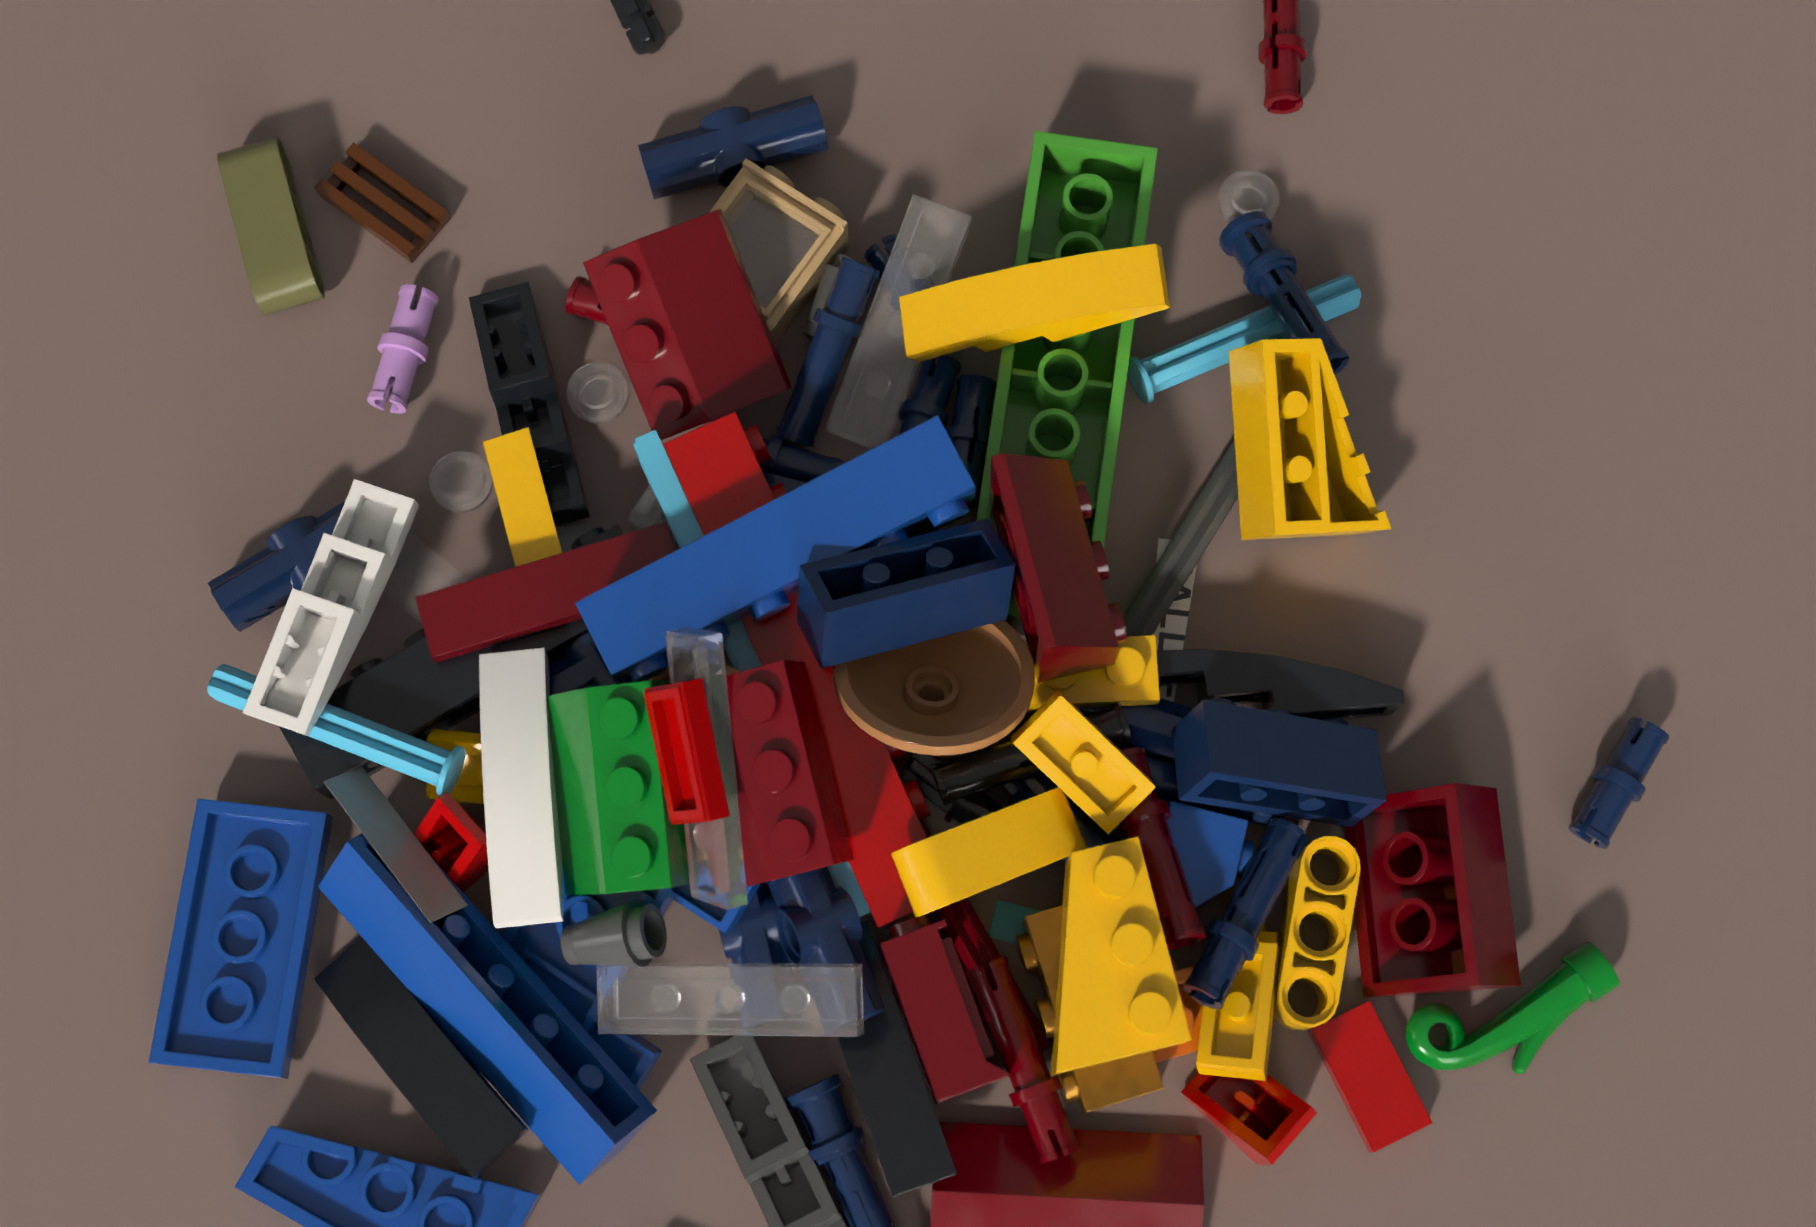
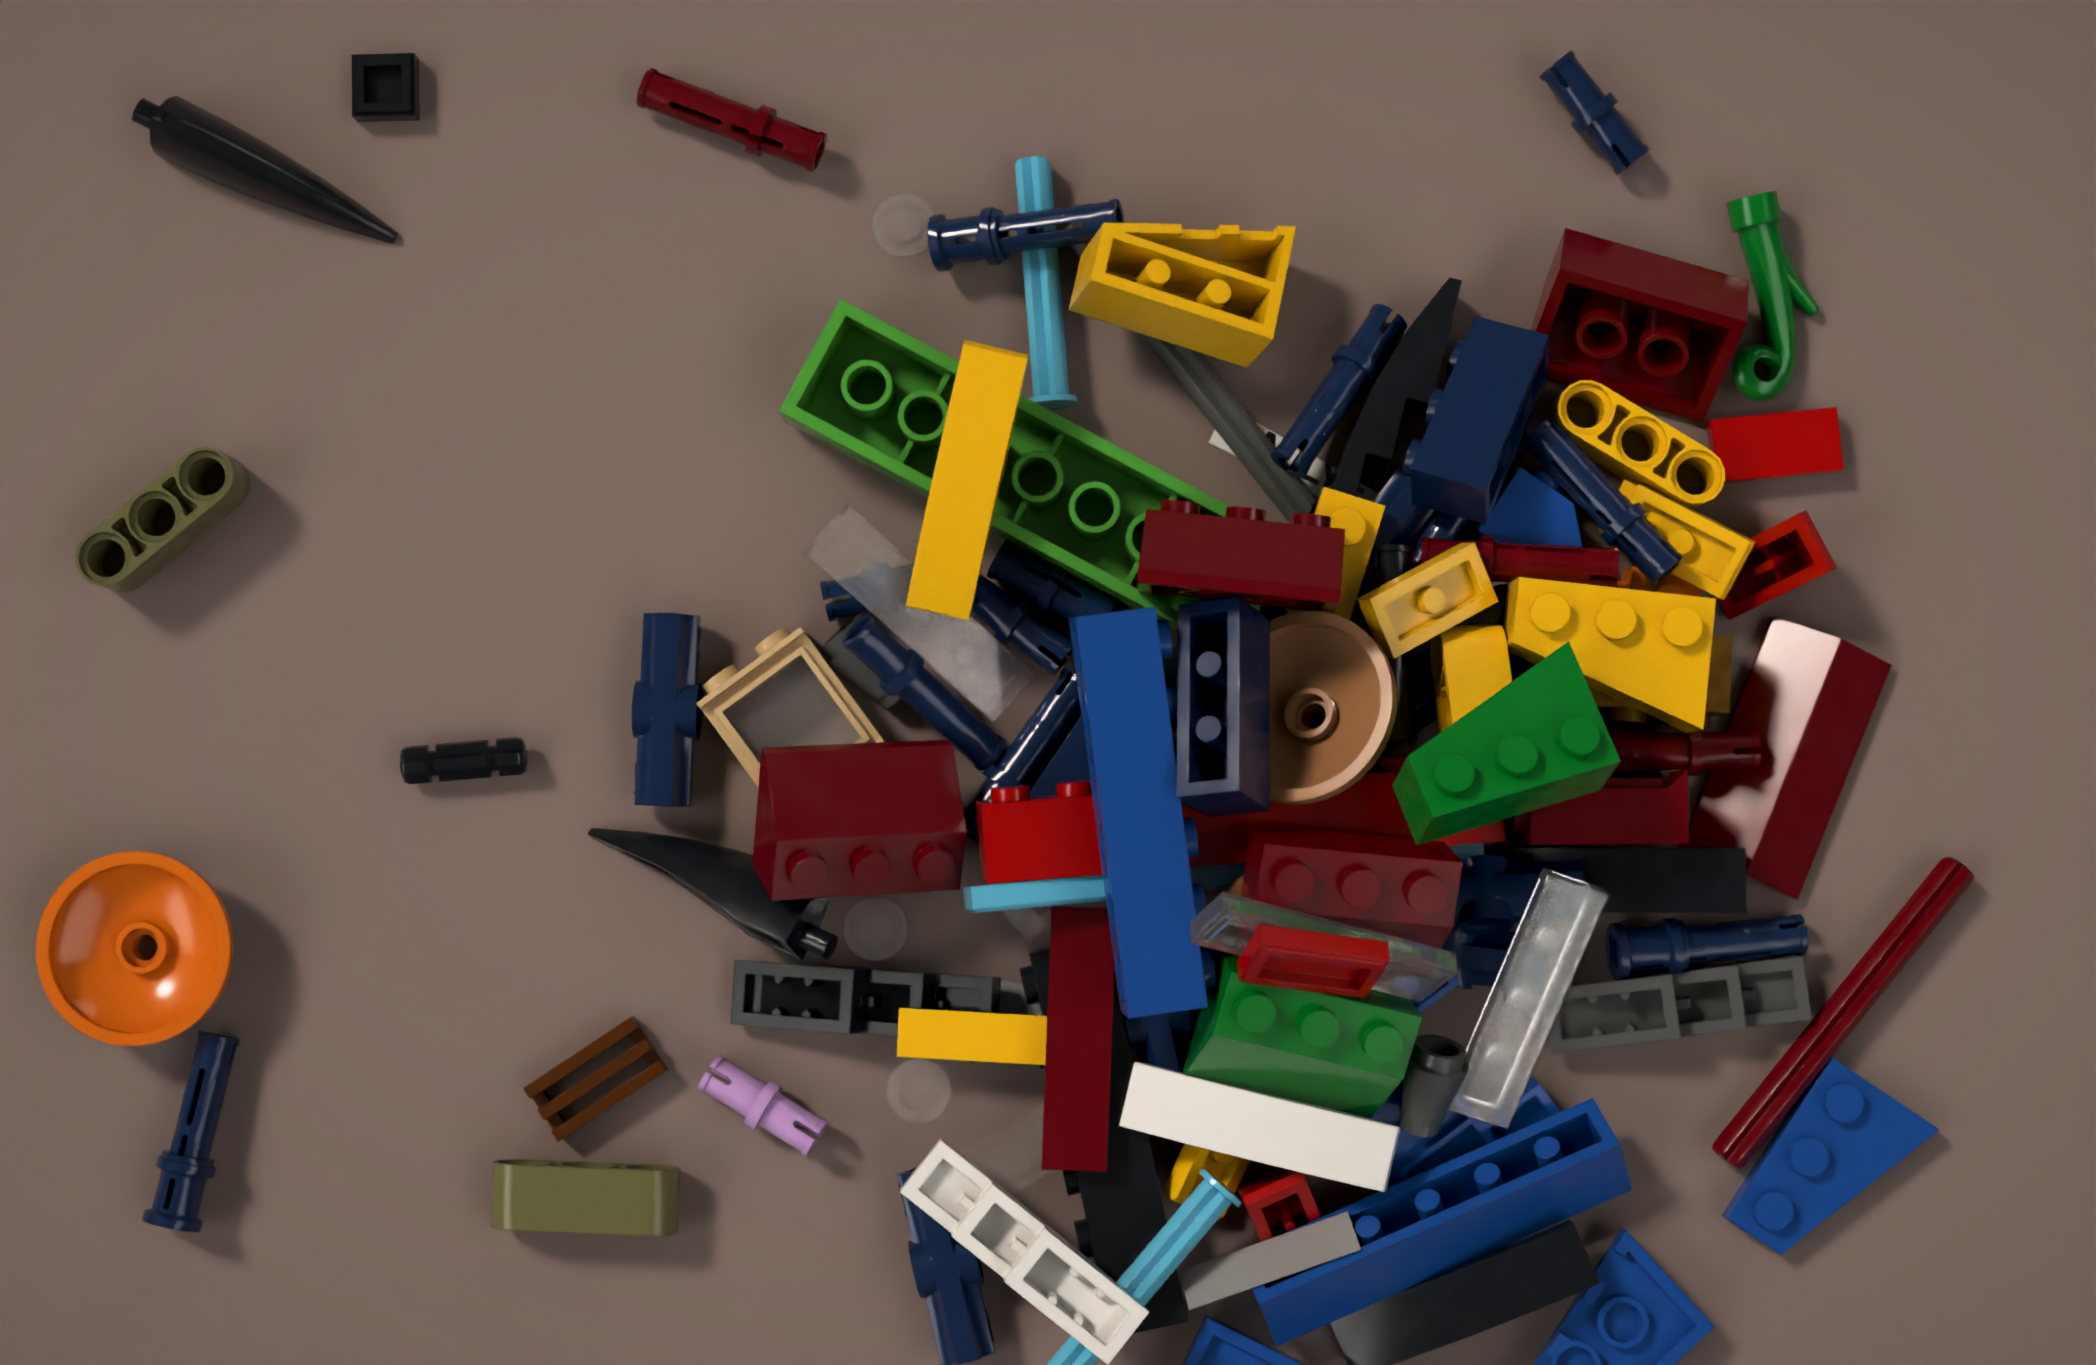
camera: 70 degrees left, 10 degrees up
(593, 230) = (731, 887): none -> black piece
(957, 872) = (1510, 754): none -> green wedge
(1250, 629) = (1353, 369): none -> dark blue pin

